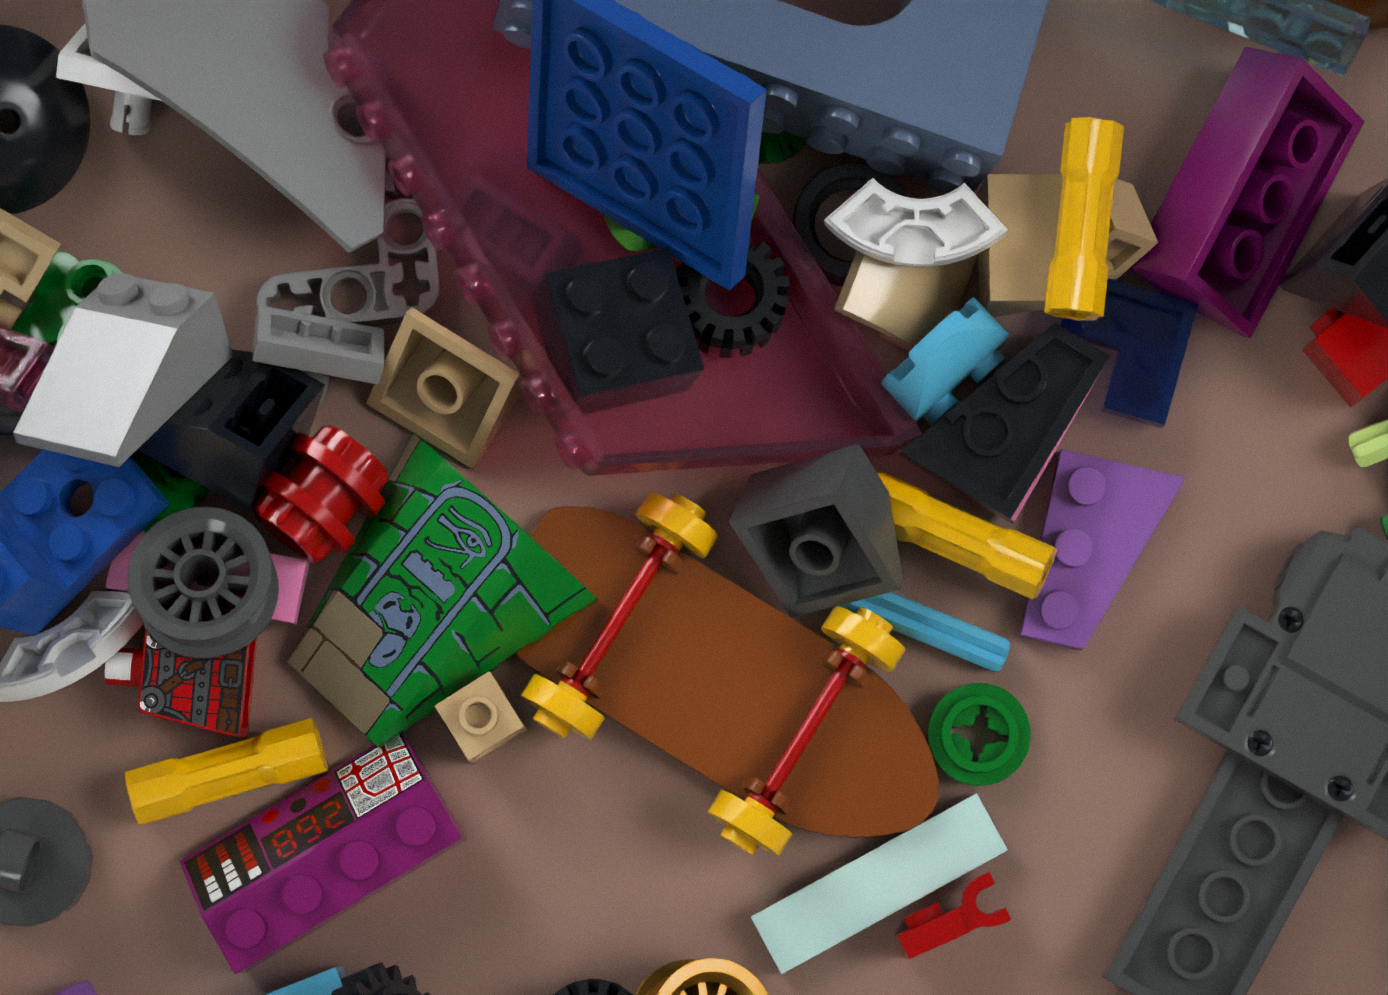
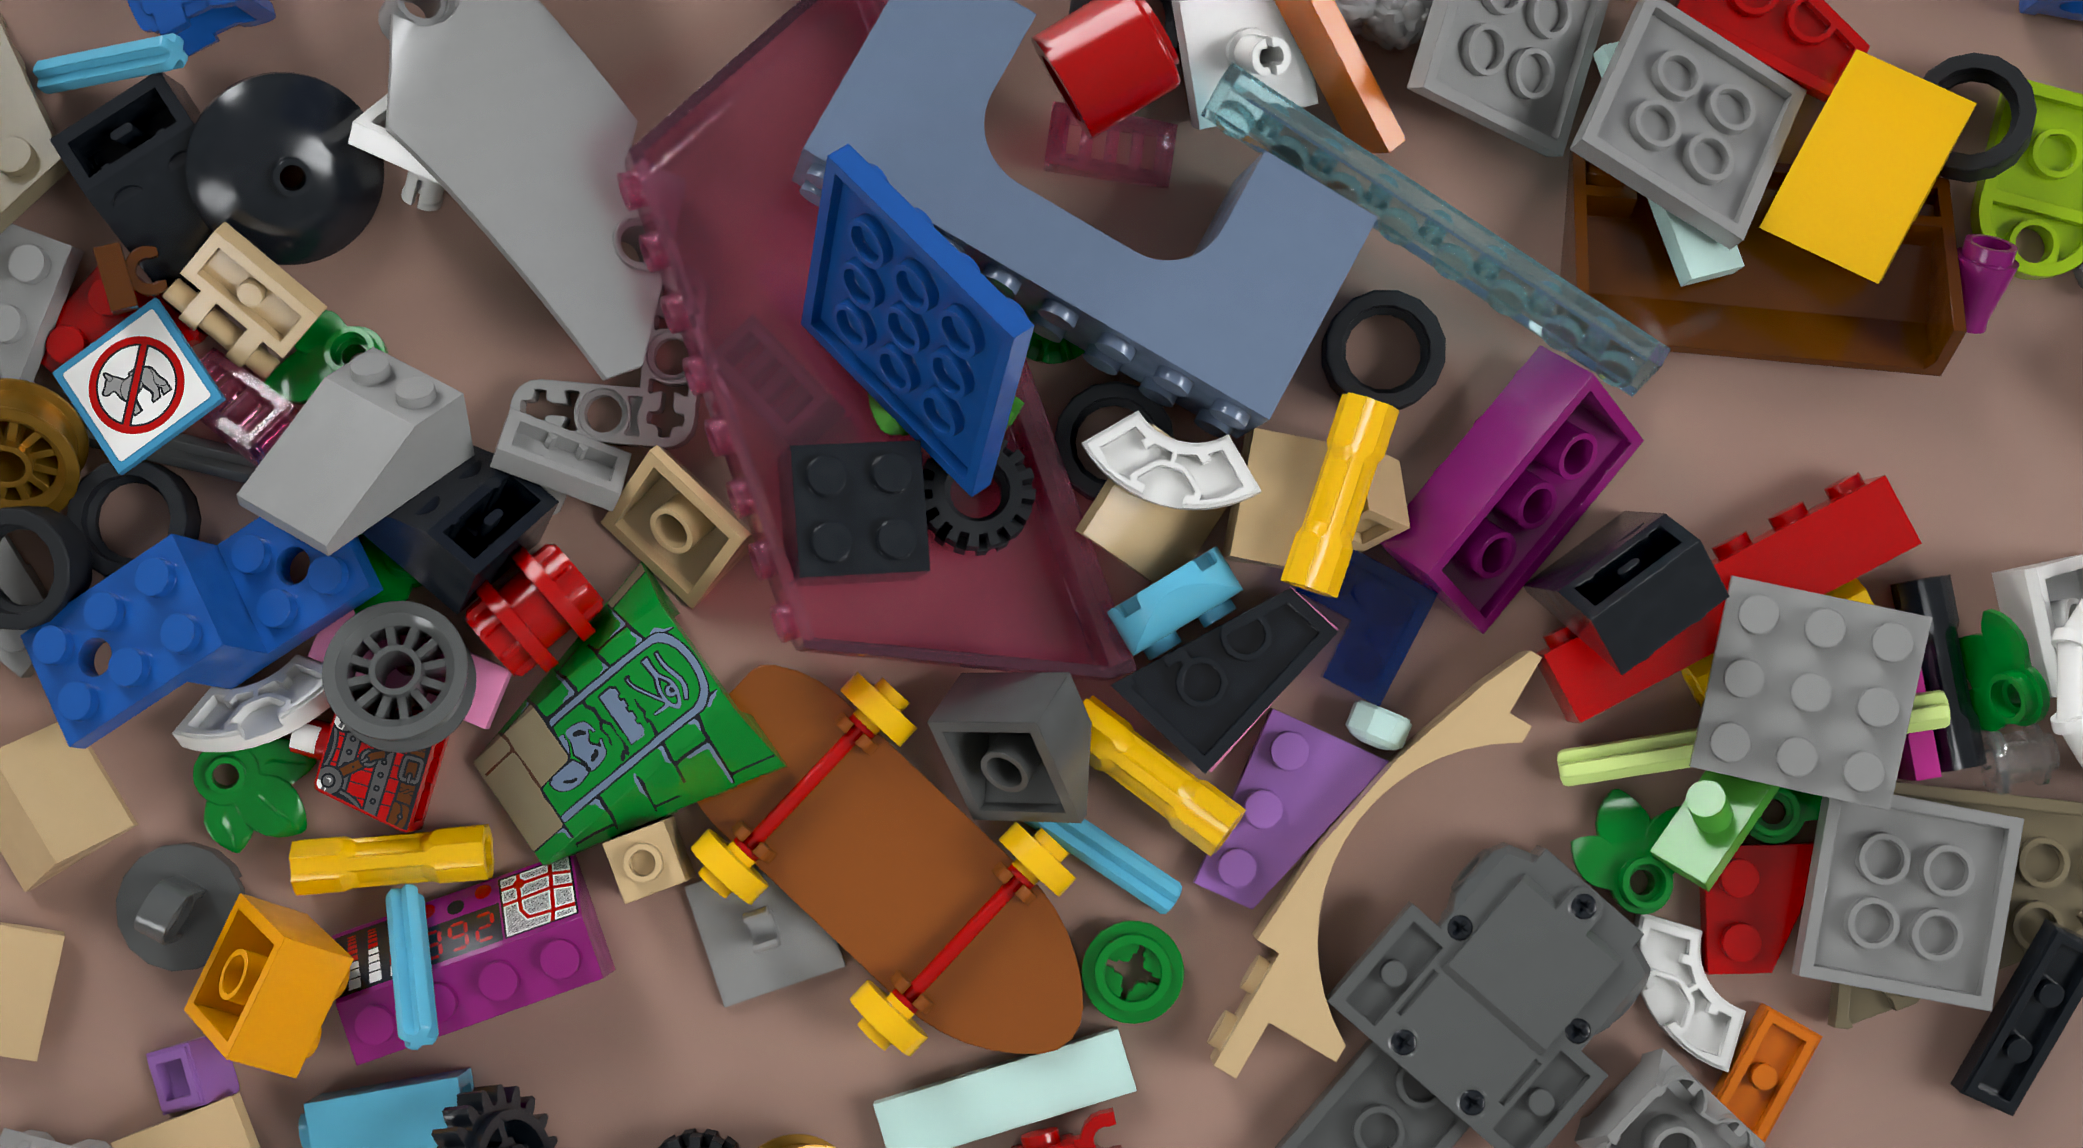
camera: 10 degrees right, 5 degrees up
(83, 737) = (258, 799): none -> green plate
(132, 913) = (268, 986): none -> light orange brick
(271, 862) = (411, 967): none -> medium azure axle
(604, 780) = (761, 943): none -> light grey piece
(1103, 38) = (1400, 306): none -> black tyre
(1135, 713) = (1288, 983): none -> tan slope
(1167, 444) = (1378, 726): none -> light aqua tile

